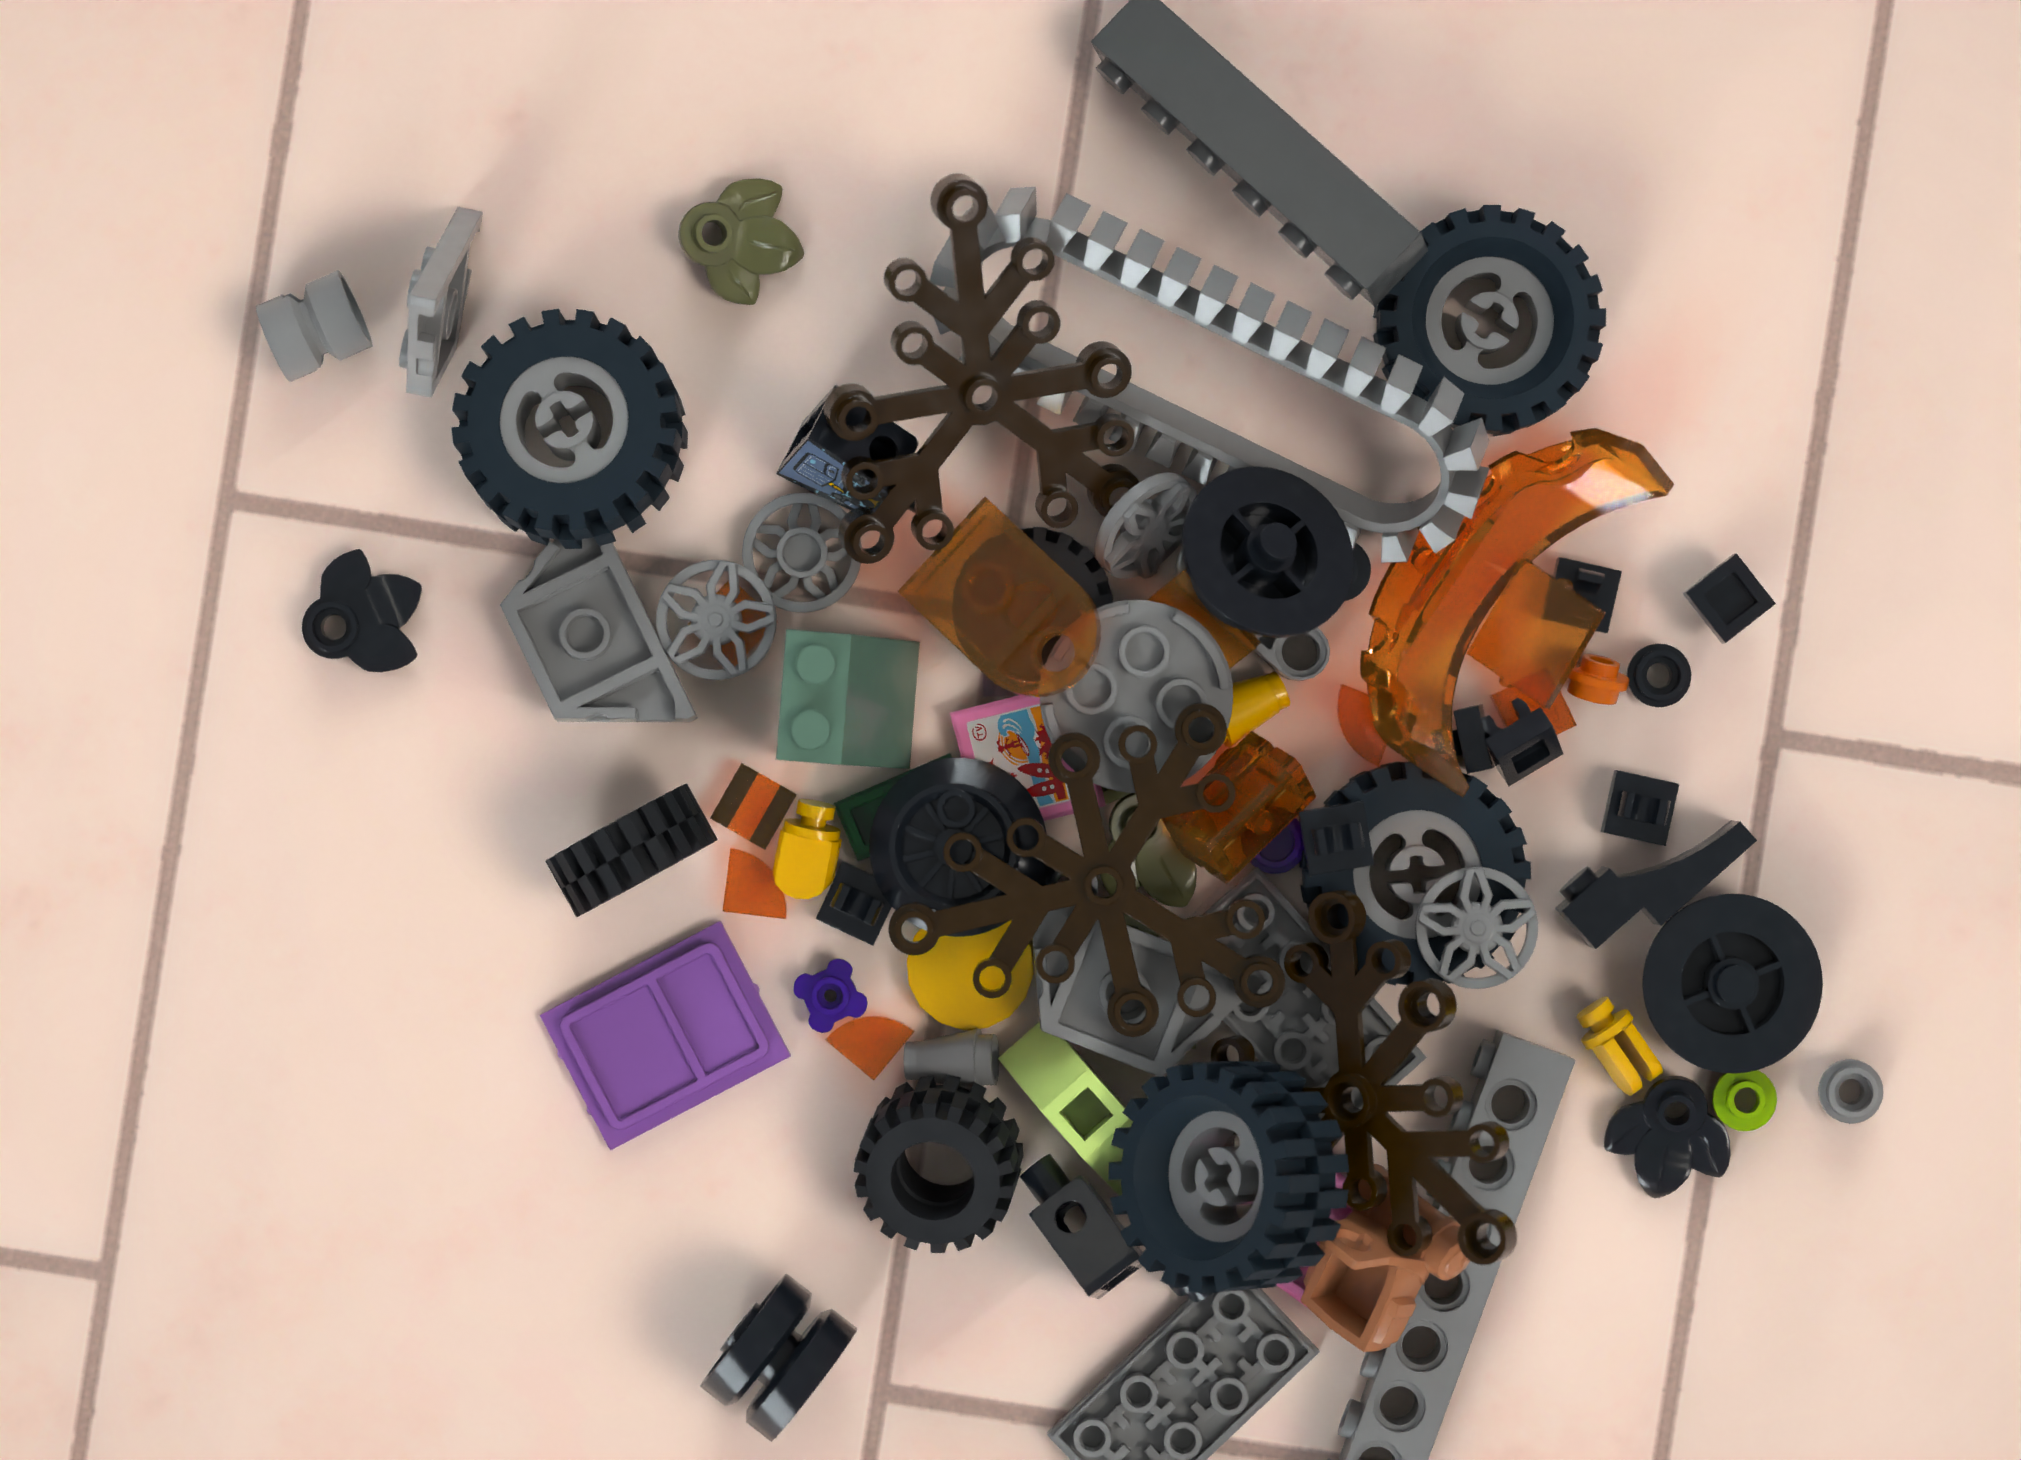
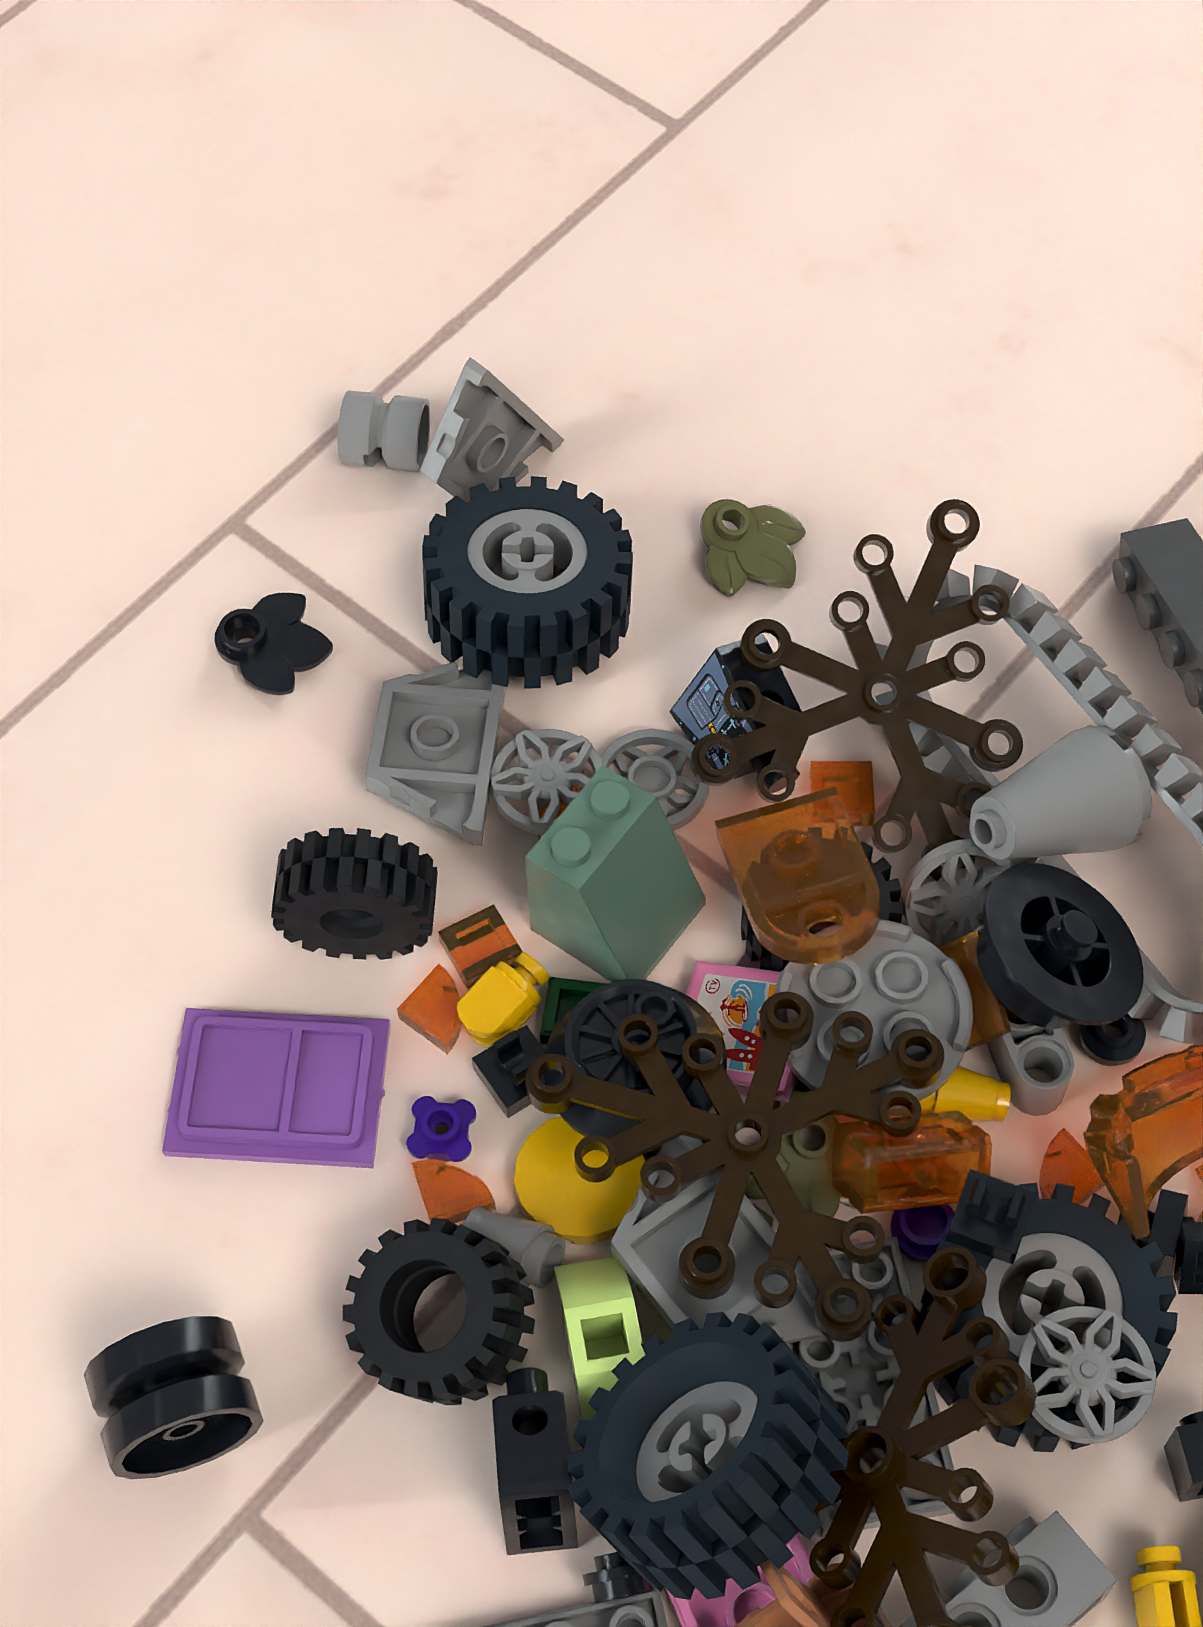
camera: 30 degrees right, 30 degrees down
(980, 464) = (853, 784): none -> clear orange tile
(1195, 411) = (1066, 800): none -> light grey cone

